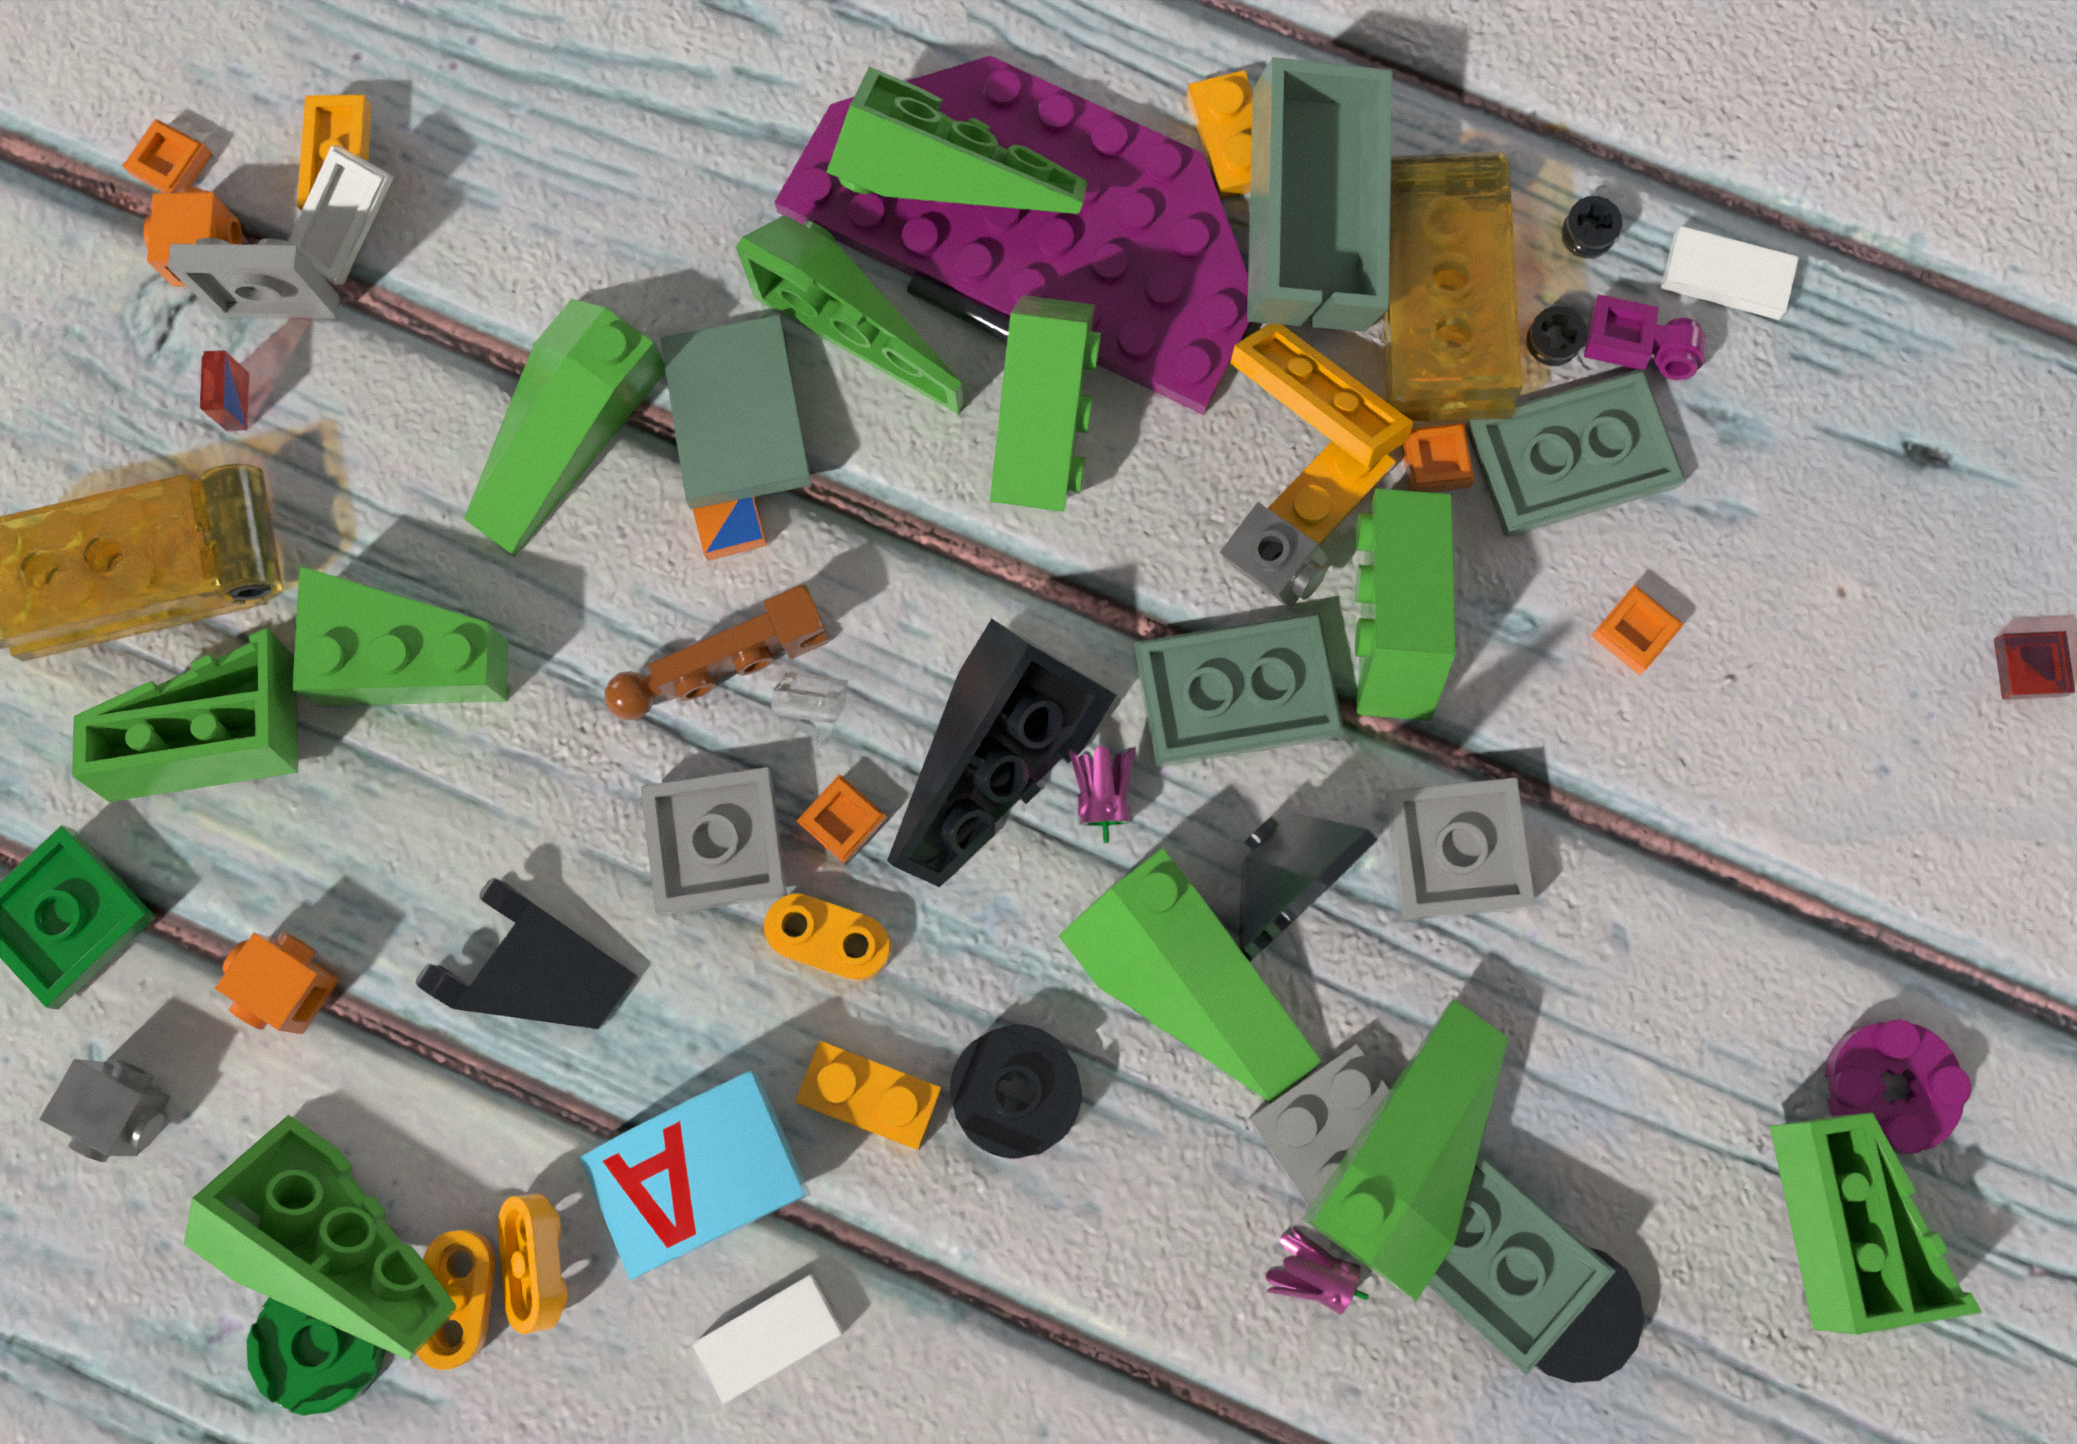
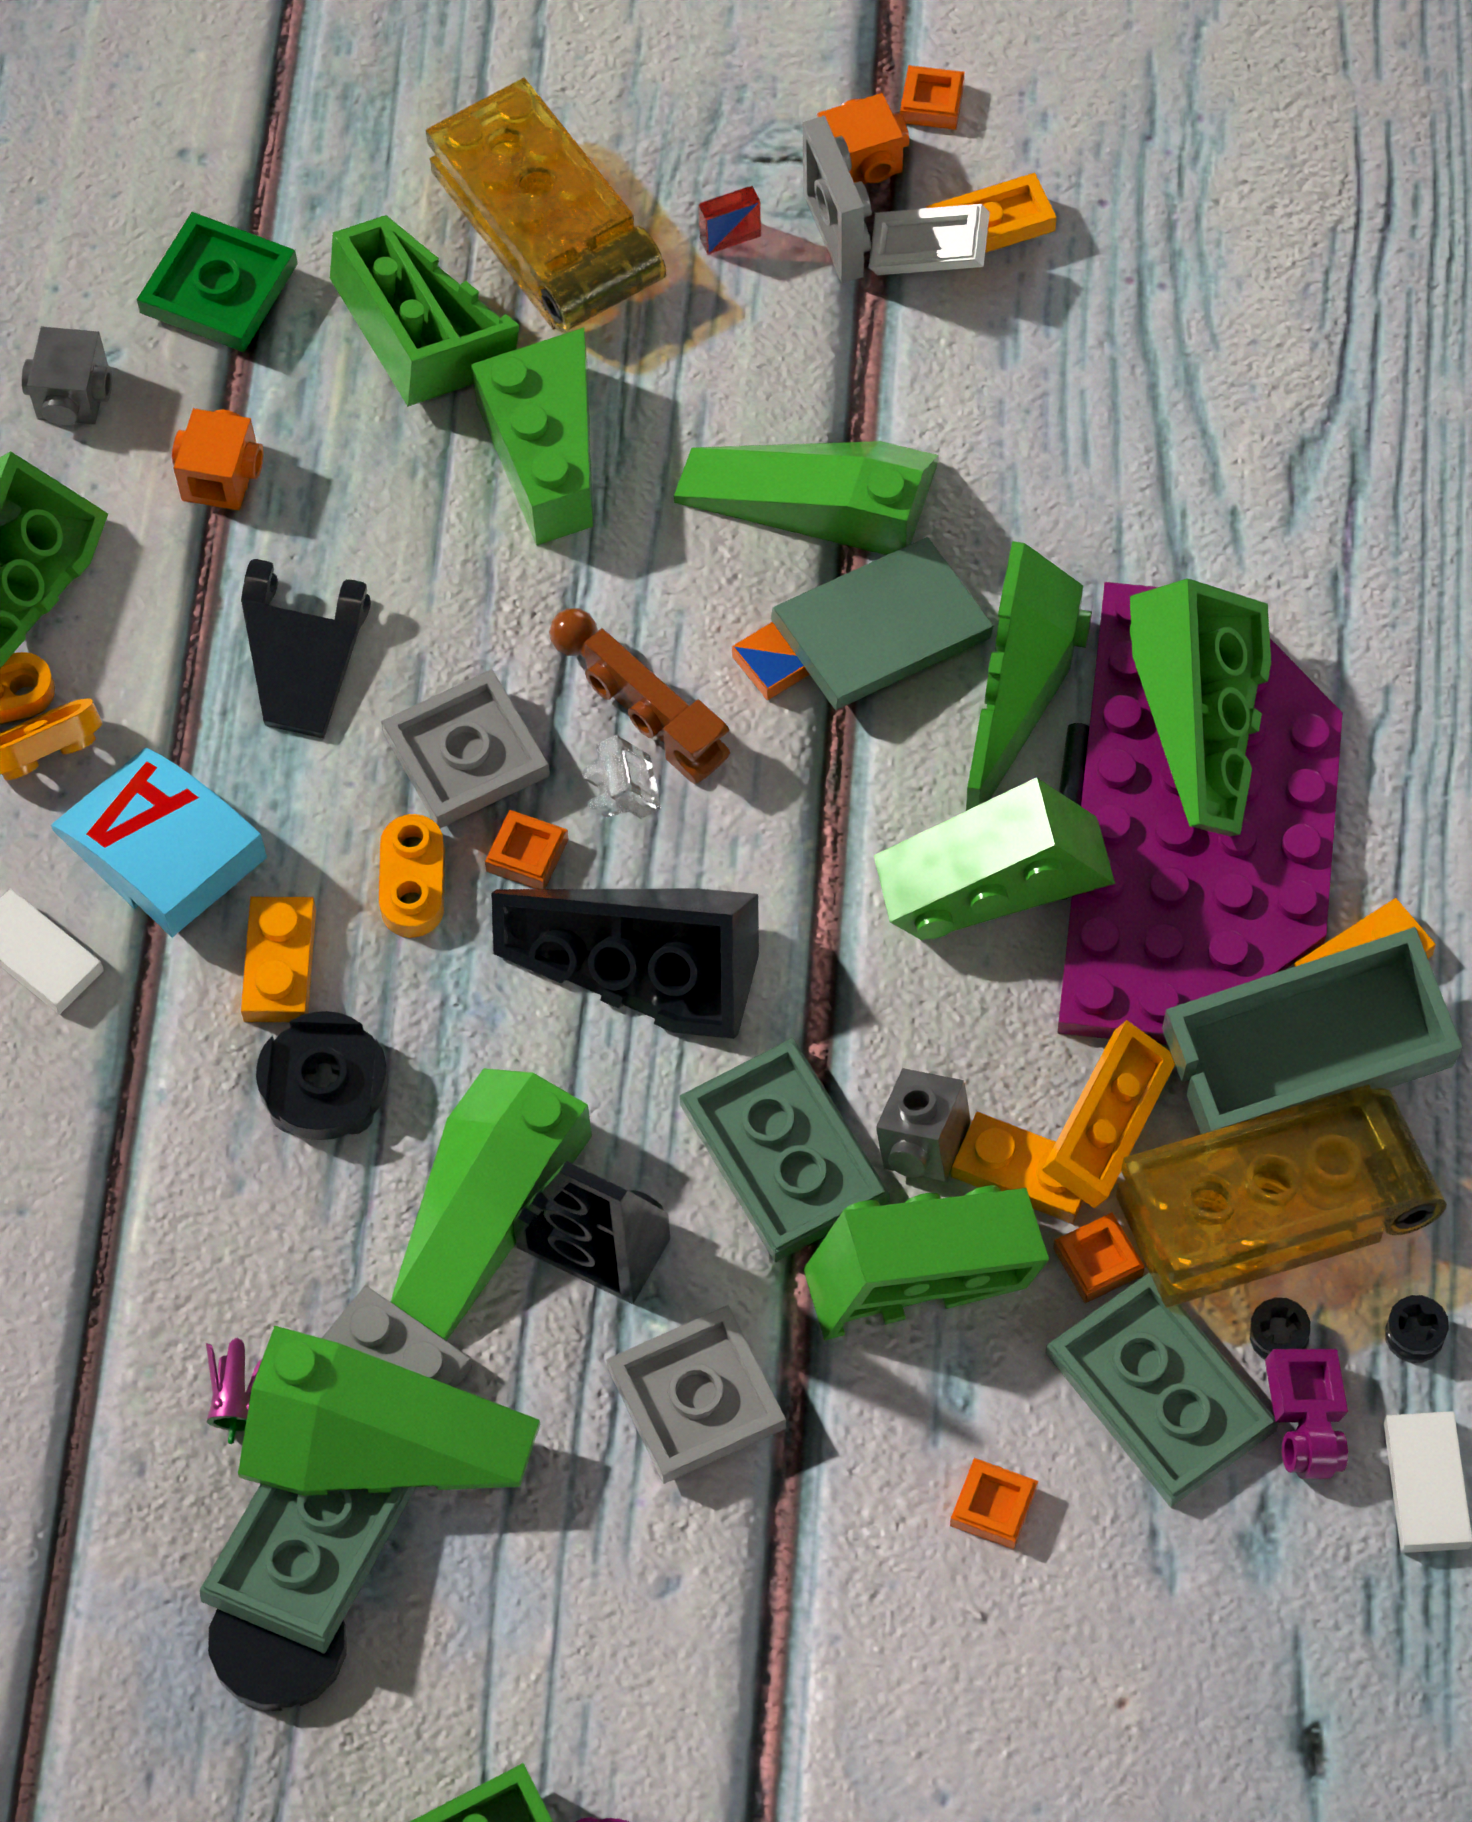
camera: 70 degrees right, 15 degrees down
(1103, 788) = (622, 1052): flat silver piece -> none

